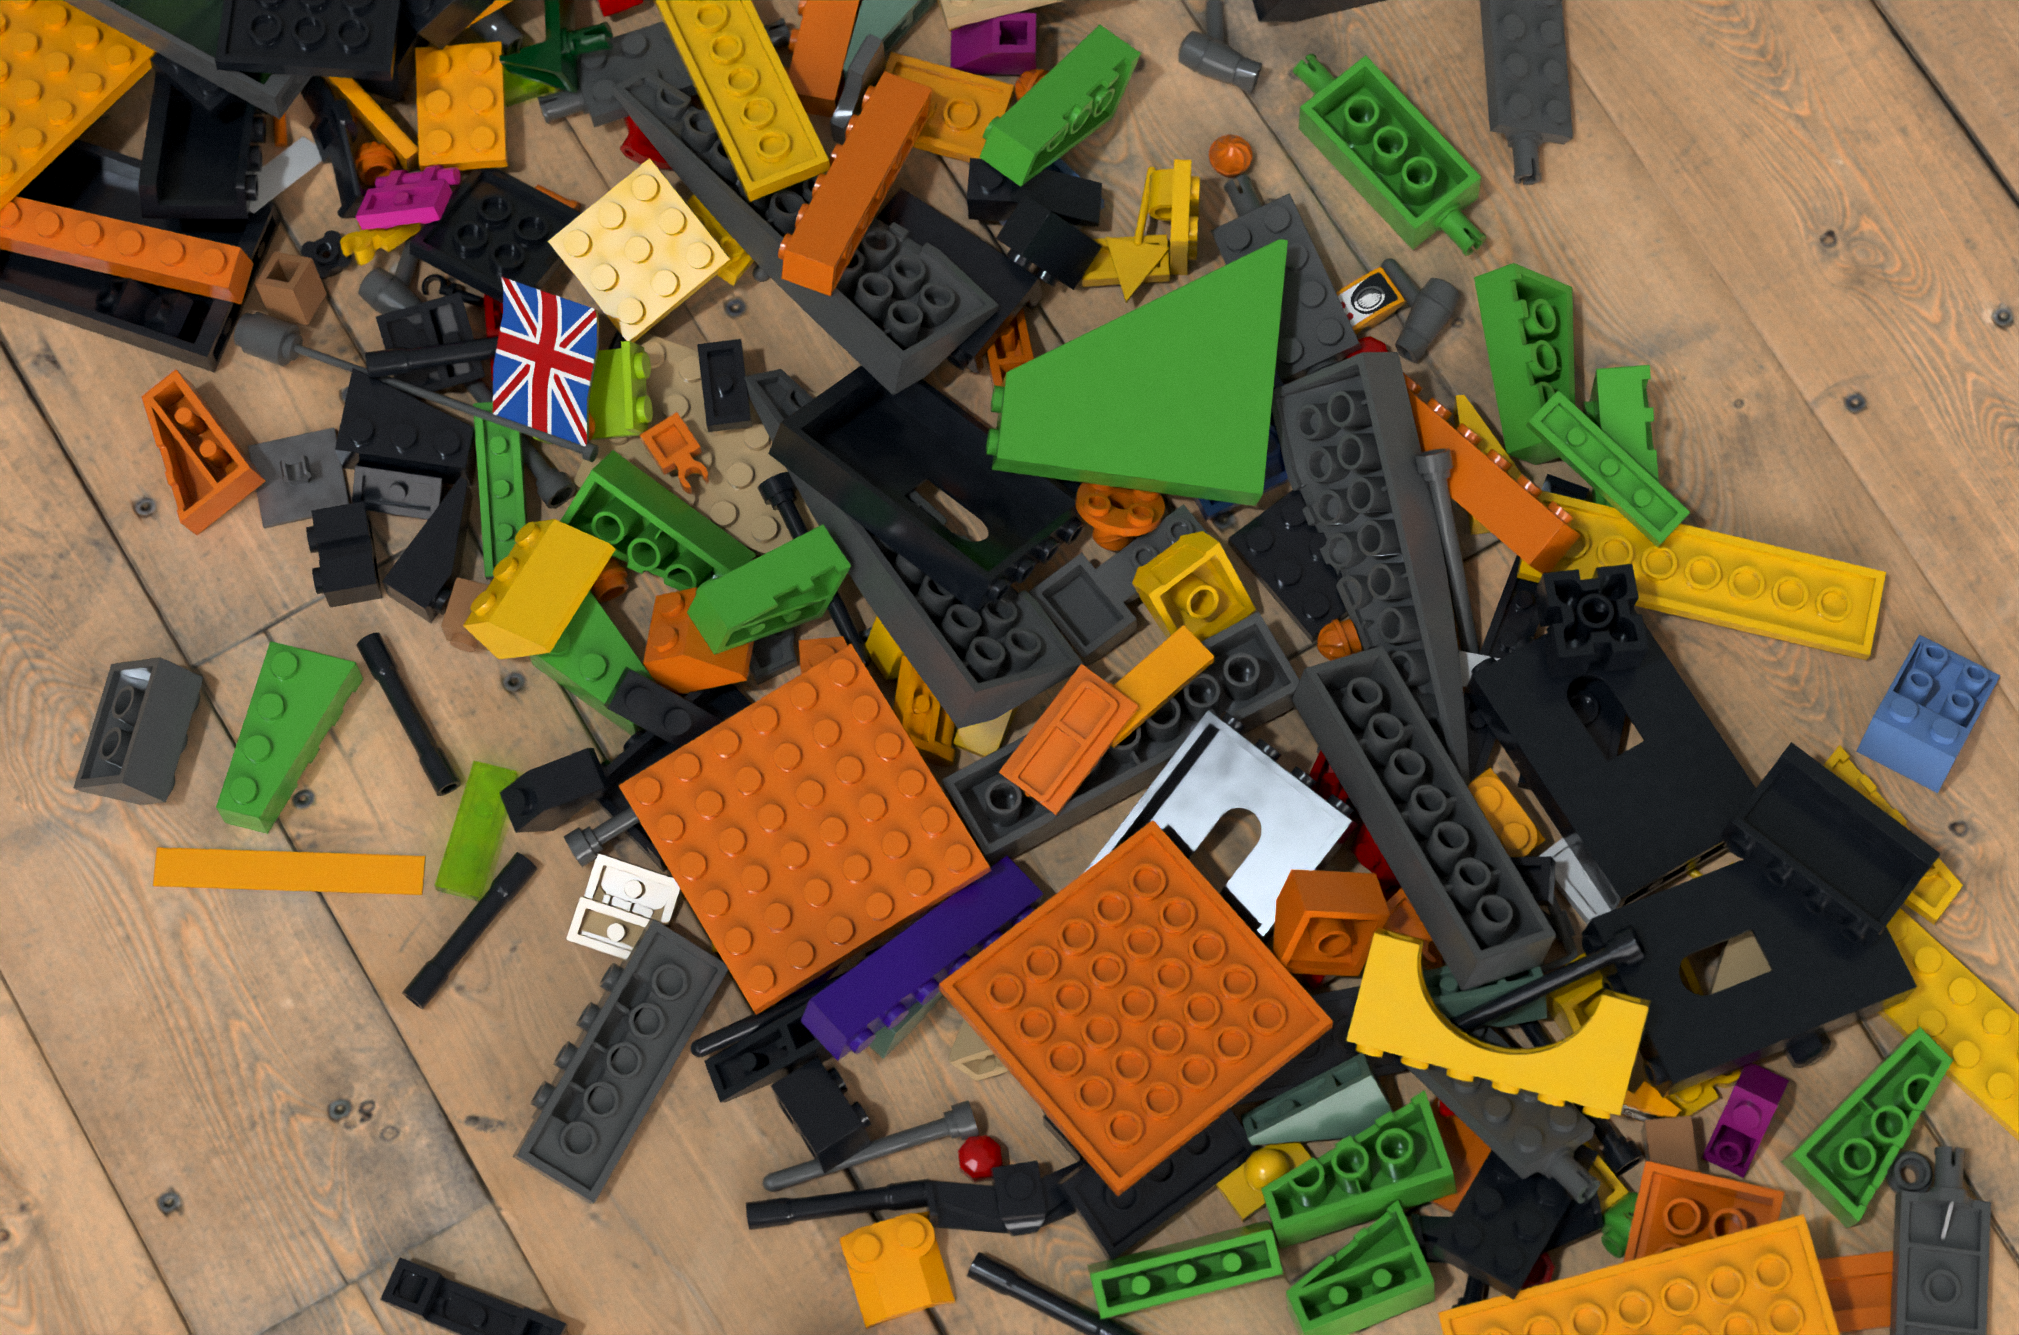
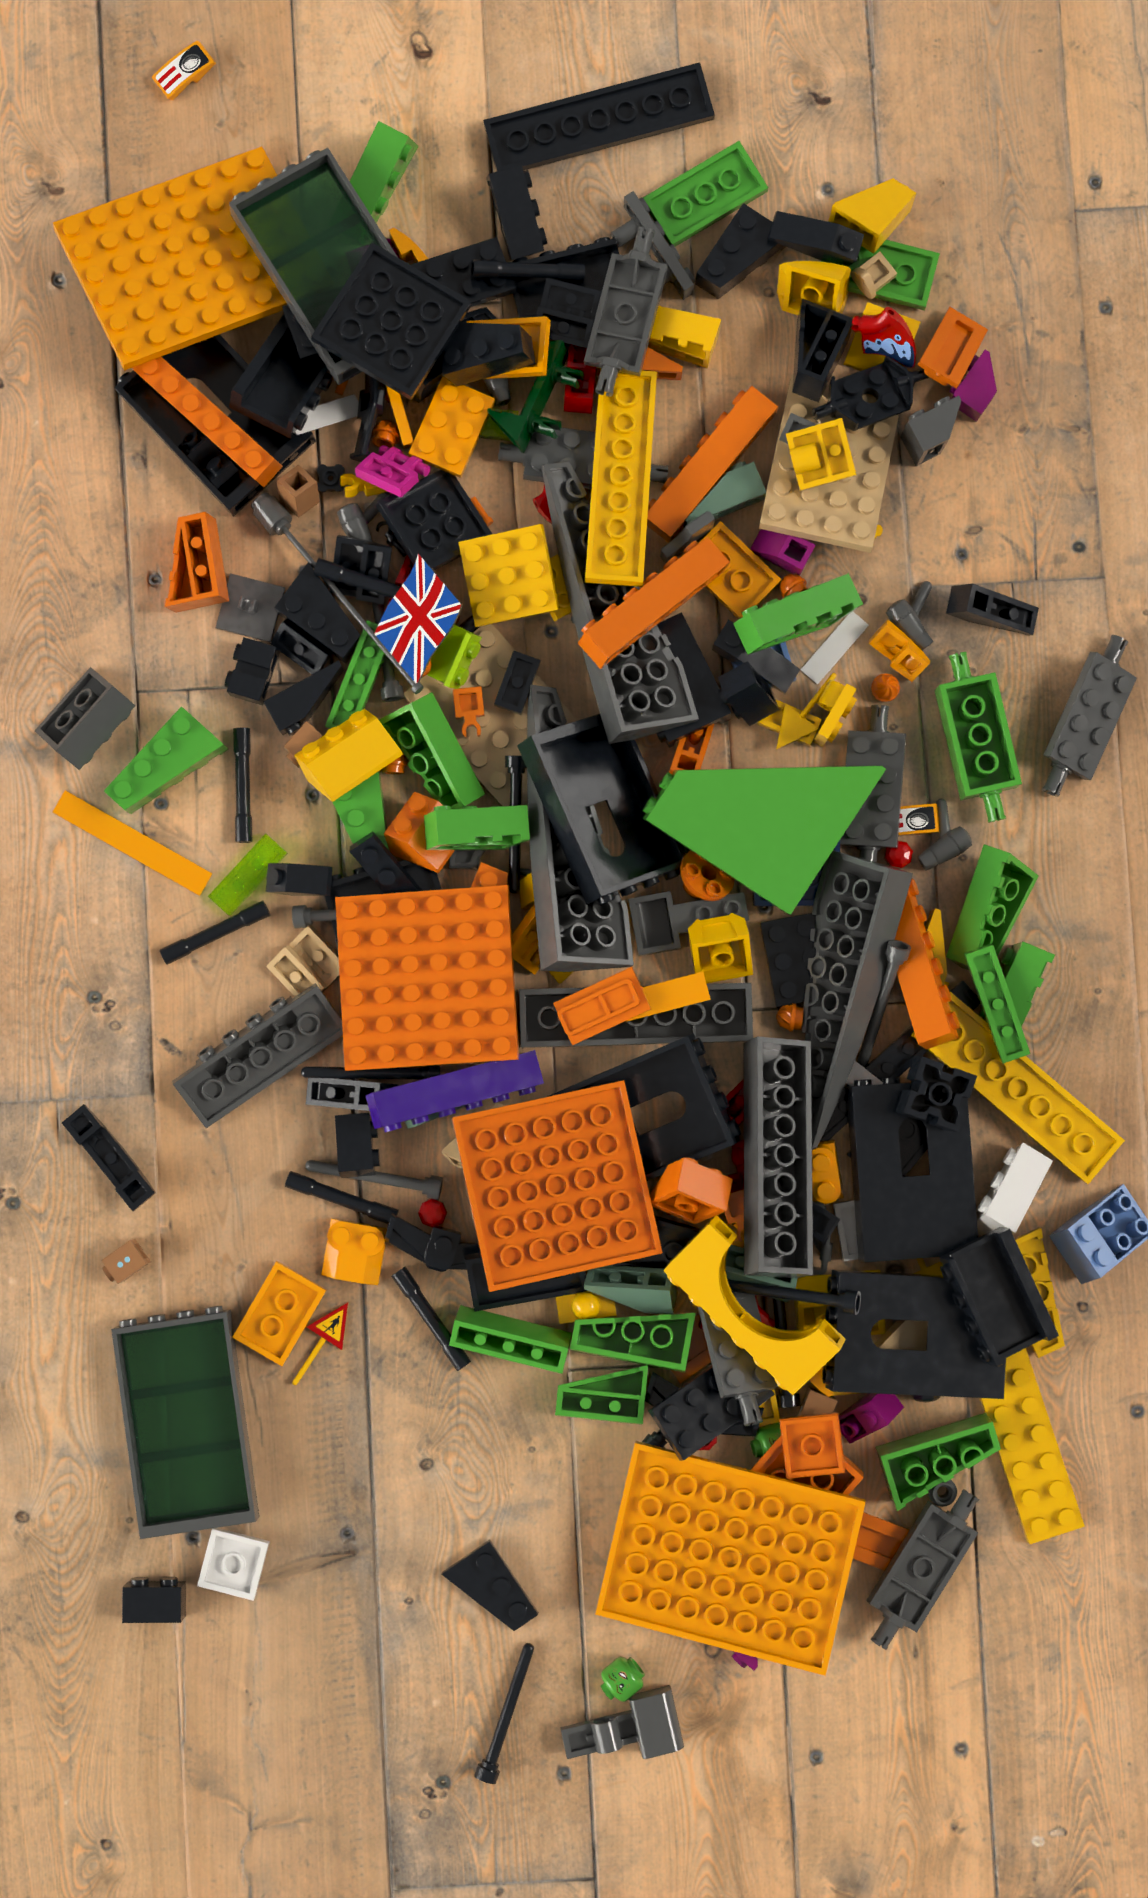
camera: 25 degrees right, 15 degrees up
(1133, 141) = (834, 647): none -> white sticker
(1224, 98) = (900, 649): none -> light orange slope
(1688, 1184) = (812, 1445): none -> orange tile
(1769, 704) = (1012, 1189): none -> white wedge

